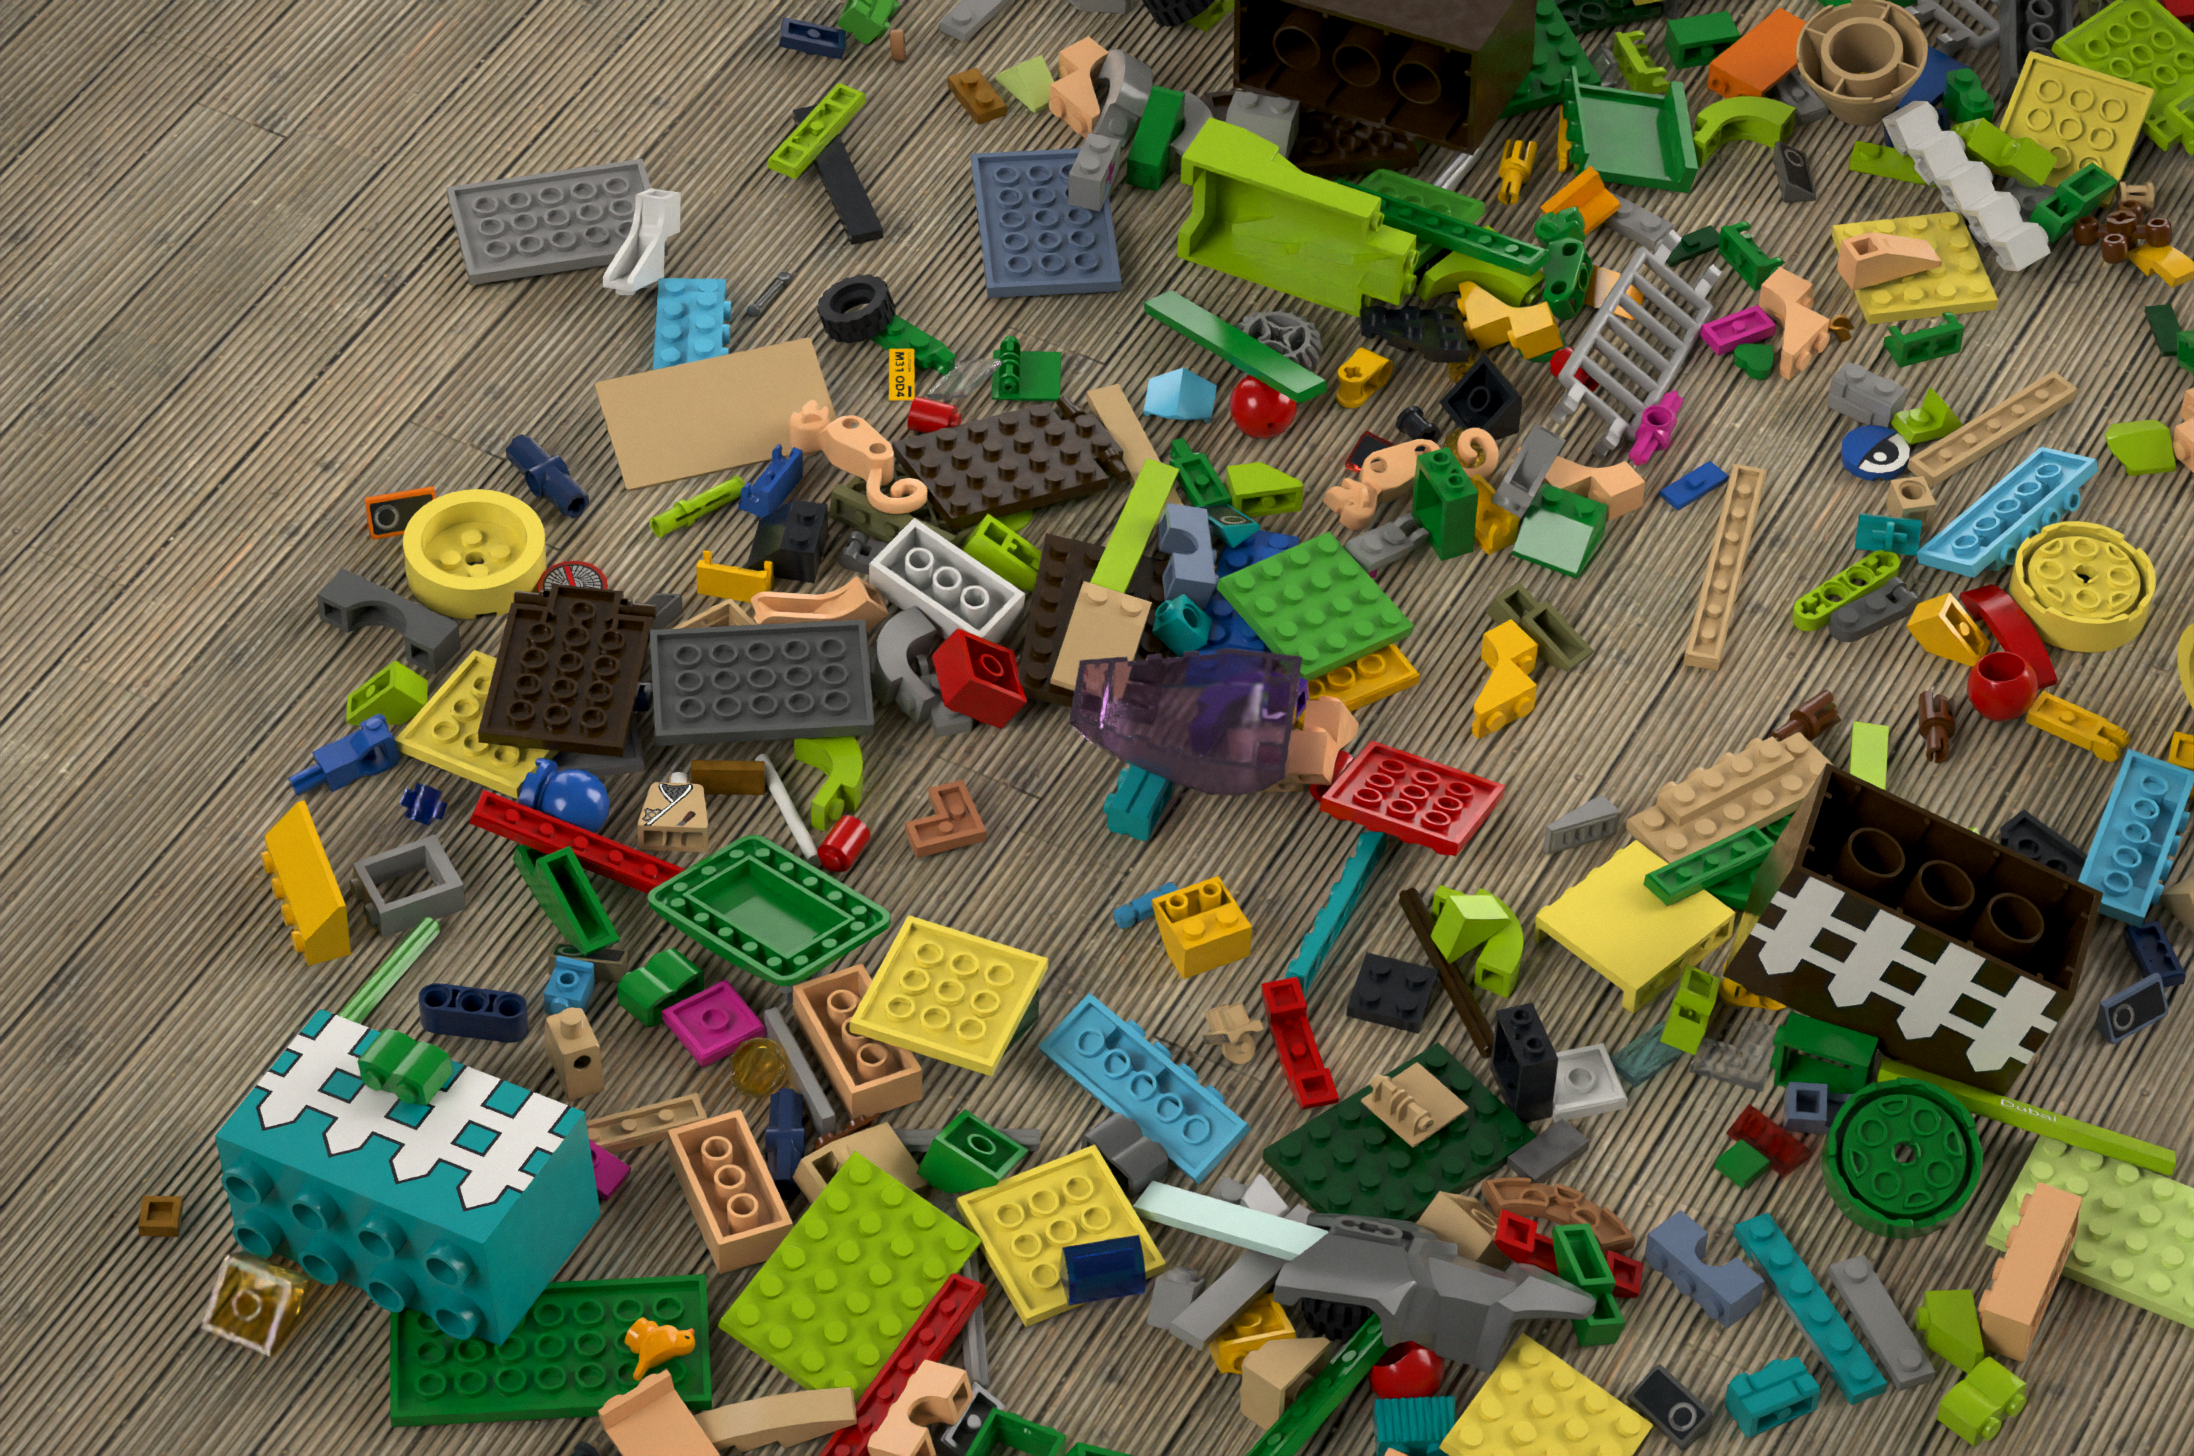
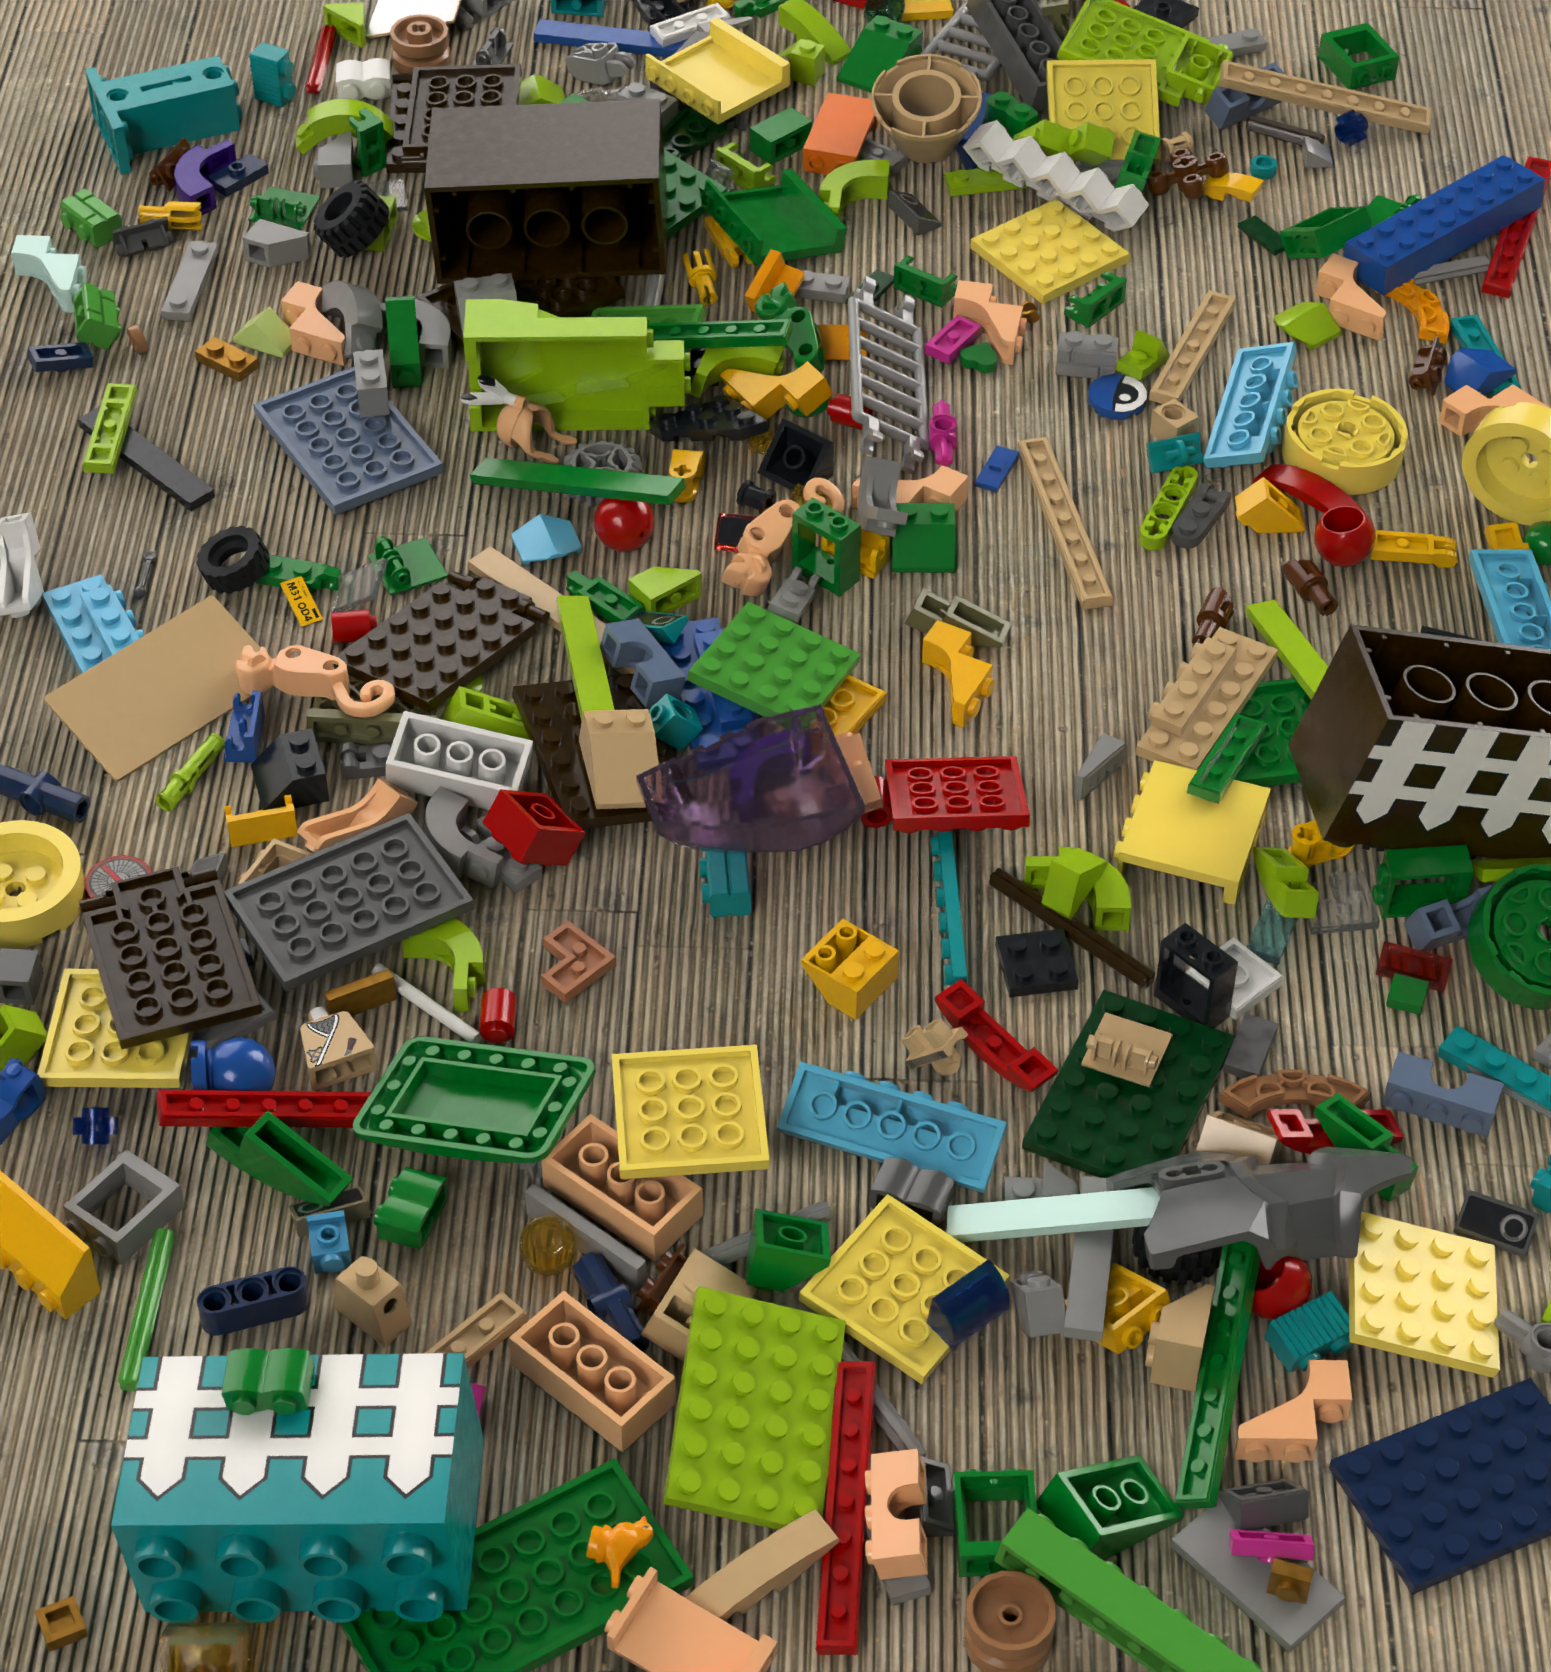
camera: 25 degrees left, 0 degrees up
(713, 1023) = (478, 1221): dark pink plate -> none
(1140, 907) = (786, 968): dark azure axle -> none
(1220, 259) = (517, 418): none -> light nougat hair
(1882, 258) = (1032, 248): light nougat slope -> none

